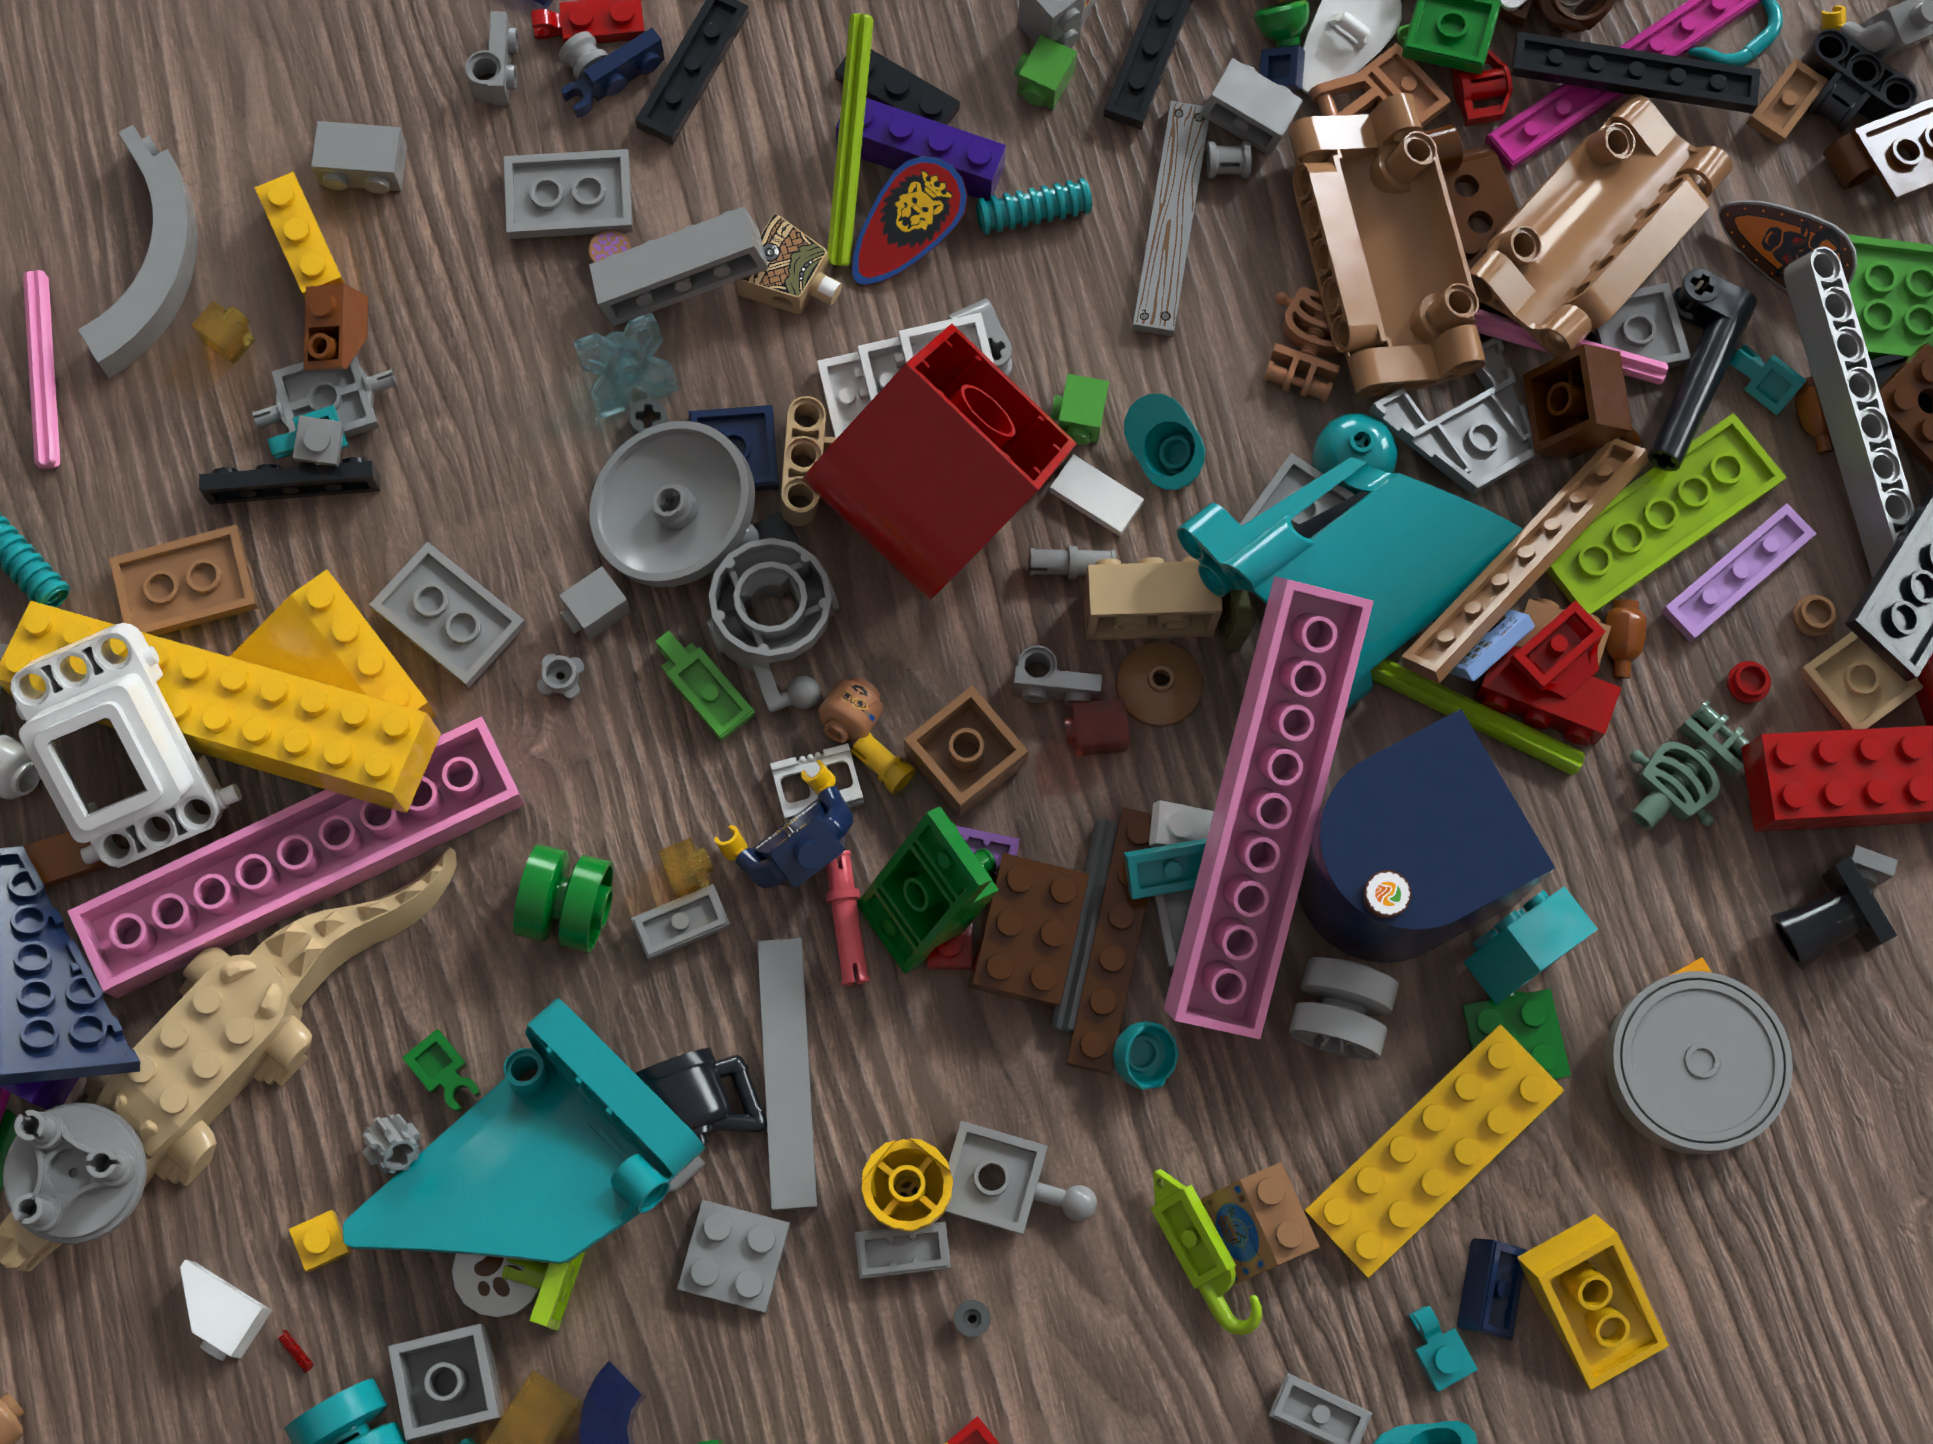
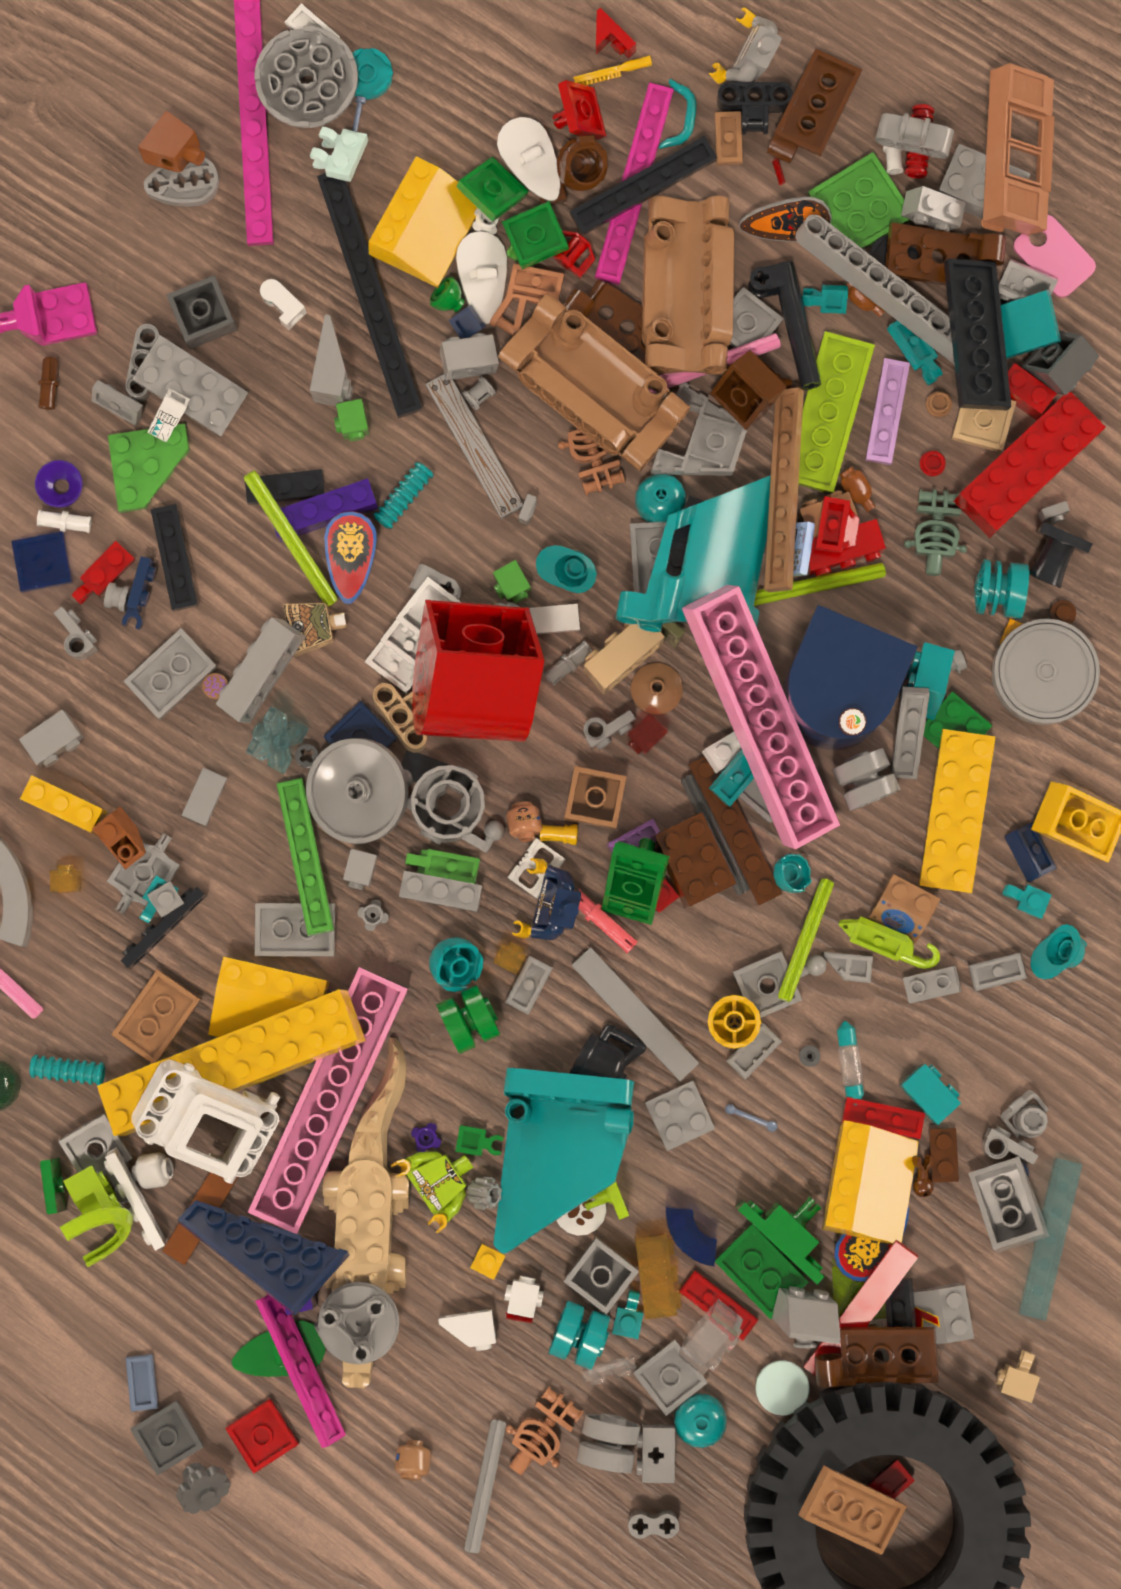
camera: 30 degrees left, 10 degrees up
(323, 1327) = (523, 1296): none -> white brick
(343, 1079) = (437, 1182): none -> lime torso
(376, 999) = (430, 1131): none -> dark purple plate
(481, 369) = (204, 797): none -> light grey tile
(536, 537) = (305, 857): none -> bright green tile
(608, 815) = (455, 963): none -> teal cylinder
(670, 712) = (441, 891): none -> light grey brick
(844, 1371) = (771, 1125): none -> sand blue hinge
(1021, 1372) = (850, 1061): none -> piece
(1091, 1157) = (805, 940): none -> lime axle
(1125, 1245) = (851, 967): none -> light grey tile
(1174, 339) = (527, 510): none -> light grey tile
(1217, 1358) = (932, 984): none -> light grey plate
(1452, 990) = (910, 732): none -> light grey tile
(1586, 956) = (958, 662): none -> light grey plate
(1722, 905) = (1002, 589): none -> teal wheel
(1785, 1003) = (1063, 611): none -> reddish brown plate
(1819, 190) = (778, 171): none -> red leg
(1835, 528) = (916, 352): none -> teal plate

